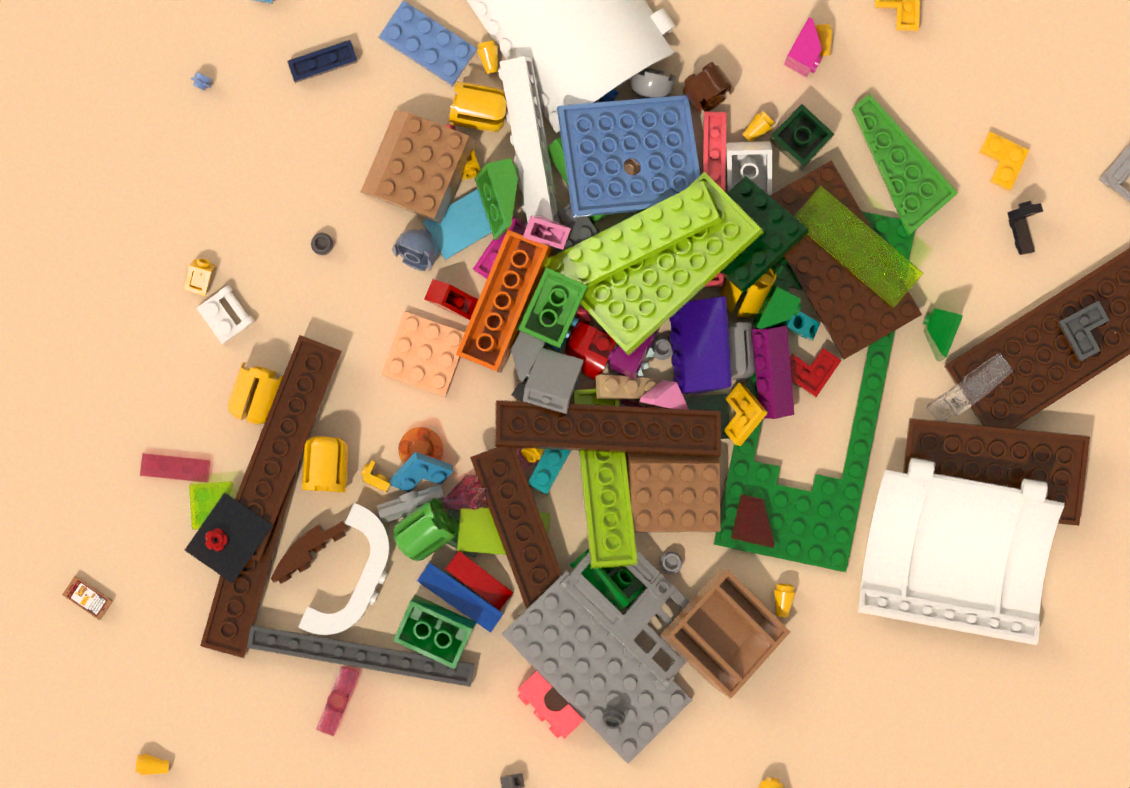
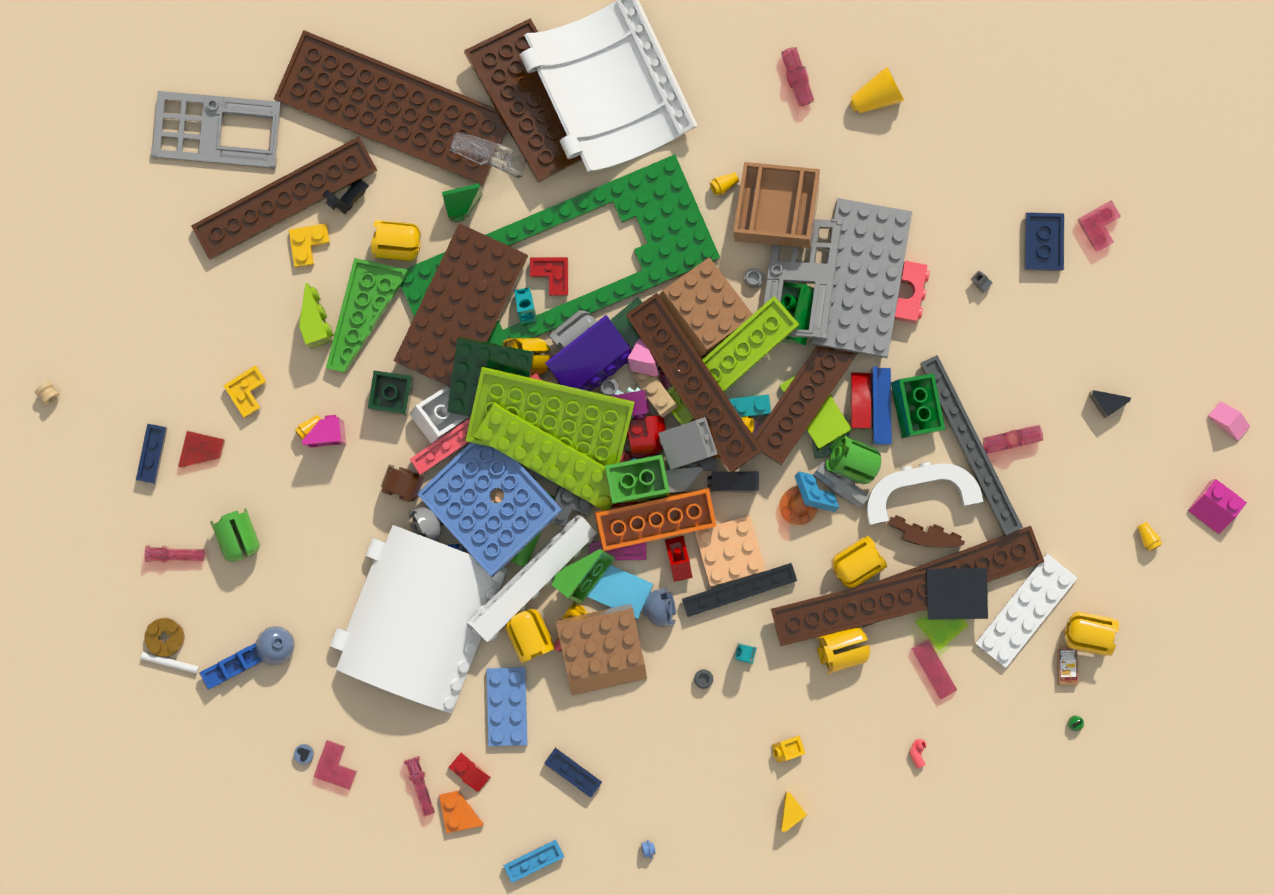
camera: 120 degrees left, 0 degrees up
(32, 566) = (1073, 719): none -> green hinge
(100, 640) = (1091, 633): none -> yellow cylinder
(110, 394) = (916, 751): none -> coral arm
(138, 239) = (791, 812): none -> yellow slope
(167, 595) = (1026, 610): none -> white plate
(220, 320) = (808, 712): white plate -> none
(222, 539) = (970, 600): red plate -> none
(317, 298) = (745, 653): none -> teal leg
(377, 481) = (843, 521): yellow bracket -> none
(381, 336) = (739, 589): none -> black plate
(466, 495) = (809, 449): clear pink plate -> none
(483, 405) = (734, 482): none -> black slope
(489, 56) = (486, 655): yellow cone -> none
(546, 231) = (585, 522): bright pink slope -> none
(613, 718) = (889, 240): dark grey plate -> none
(748, 414) = (615, 293): yellow plate -> none
(752, 522) = (687, 240): clear red wing -> none
(758, 126) = (402, 429): yellow cone -> none
(773, 371) = (572, 297): magenta brick -> none
(777, 308) = (527, 324): green slope -> none
(839, 746) = (797, 76): none -> clear pink piece
(858, 247) = (443, 299): clear neon green plate -> none
(922, 110) = (312, 320): none -> lime slope
(946, 242) = (396, 240): none -> yellow cylinder
(1063, 167) = (283, 198): none -> reddish brown plate
(1078, 328) = (393, 109): dark grey plate -> none

